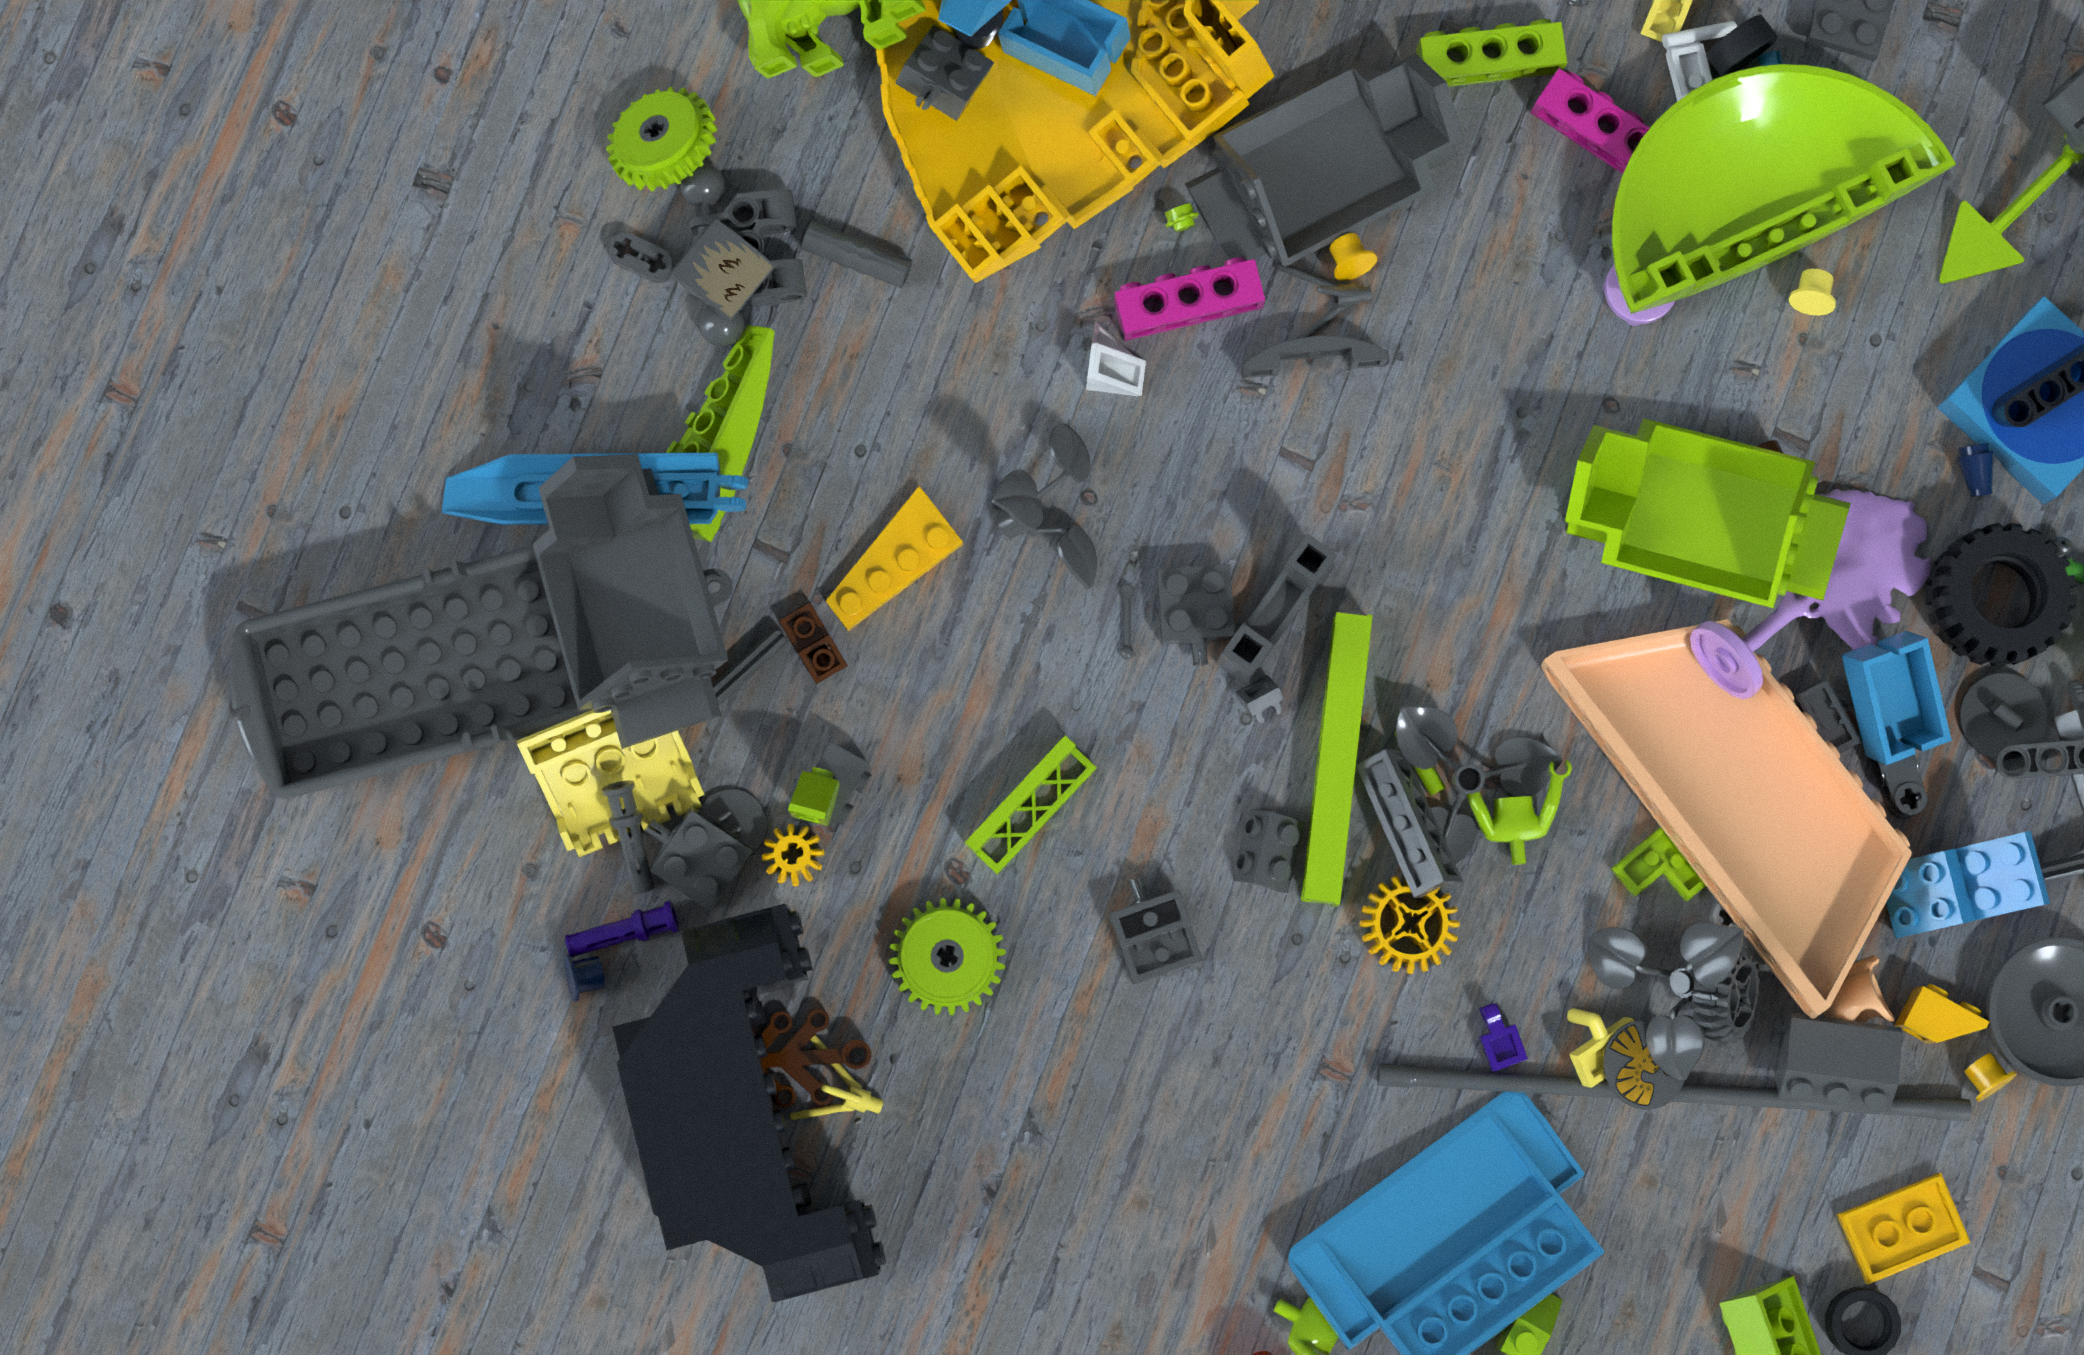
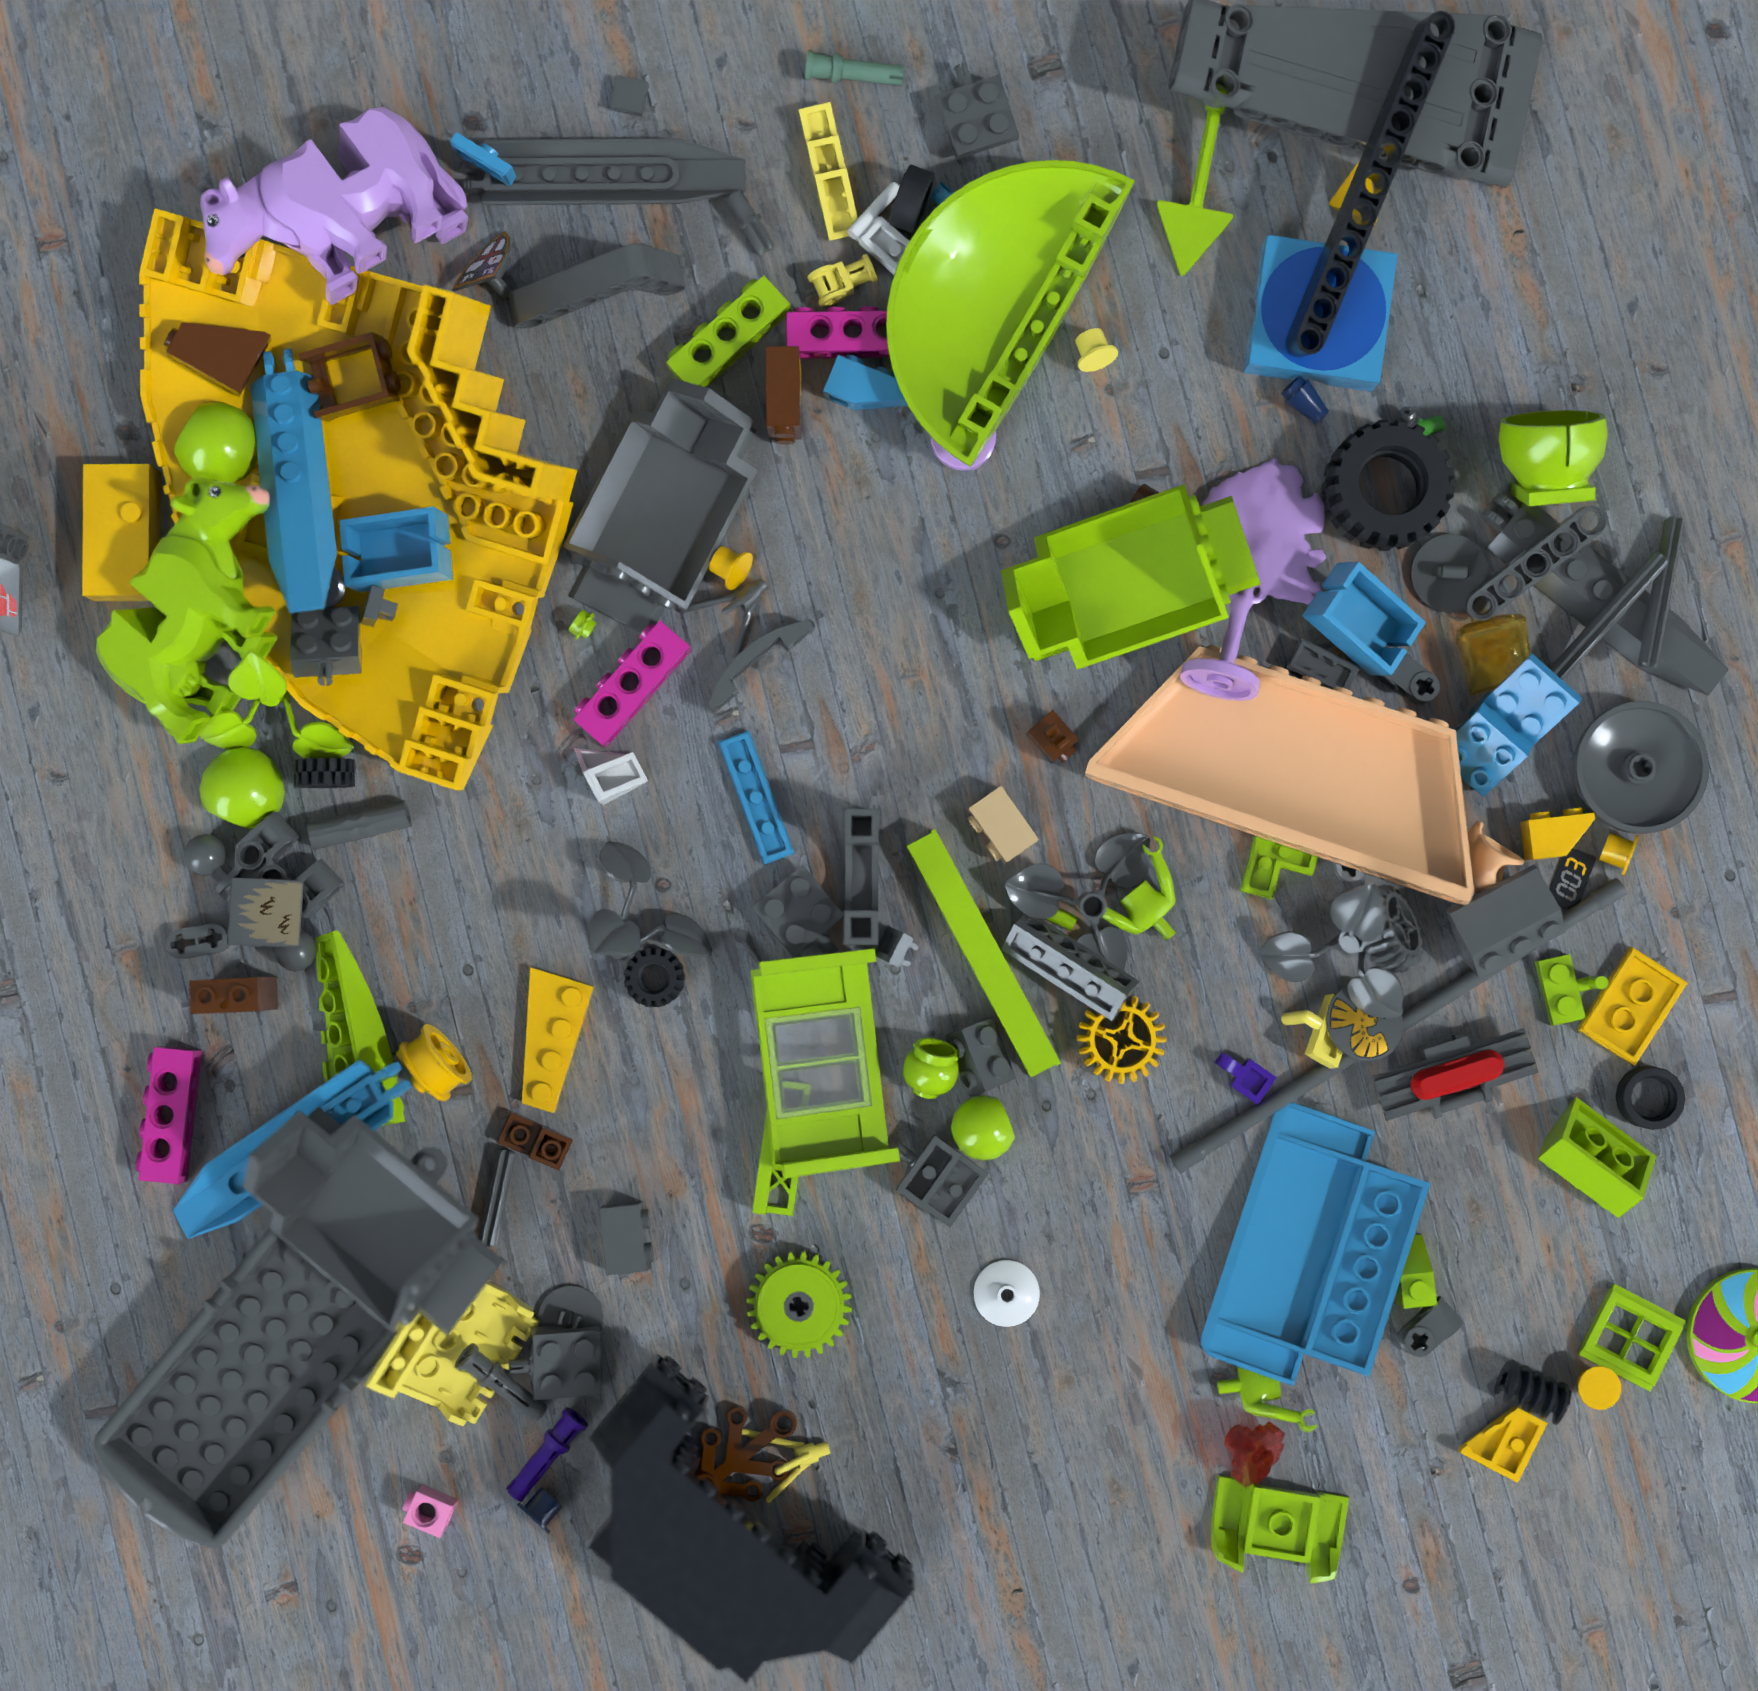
camera: 30 degrees left, 5 degrees up
(497, 913) = (443, 1505): none -> bright pink brick
(504, 410) = (150, 1163): none -> dark pink brick
(634, 315) = (233, 995): none -> reddish brown window
(661, 138) = (148, 843): lime gear -> none
(774, 508) = (434, 1063): none -> yellow wheel
(777, 149) = (242, 787): none -> lime cylinder
(783, 847) = (620, 1306): yellow gear -> none
(814, 796) = (617, 1263): lime slope -> none
(860, 186) = (324, 773): none -> black tyre
(868, 67) = (260, 681): none -> lime plant
(1011, 75) = (378, 607): none -> dark grey tile
(1024, 594) = (635, 985): none -> black tyre
(1121, 1083) = (1002, 1276): none -> white dish
(1123, 748) = (820, 1063): none -> lime piece
(1217, 827) = (931, 1067): none -> lime piece
(1226, 914) = (982, 1128): none -> lime helmet
(1228, 478) = (756, 797): none -> dark azure tile
(1434, 656) = (1002, 825): none -> tan brick
(1506, 137) = (783, 394): none -> reddish brown brick
(1536, 610) = (1053, 738): none -> reddish brown brick
(1580, 180) = (861, 386): none -> dark azure slope
(1627, 74) = (841, 280): none -> light yellow connector
(1697, 1163) = (1452, 1069): none -> dark grey piece
(1848, 1167) = (1563, 990): none -> lime plate
(1927, 1071) = (1572, 878): none -> black sticker
(1994, 809) = (1492, 650): none -> clear yellow slope

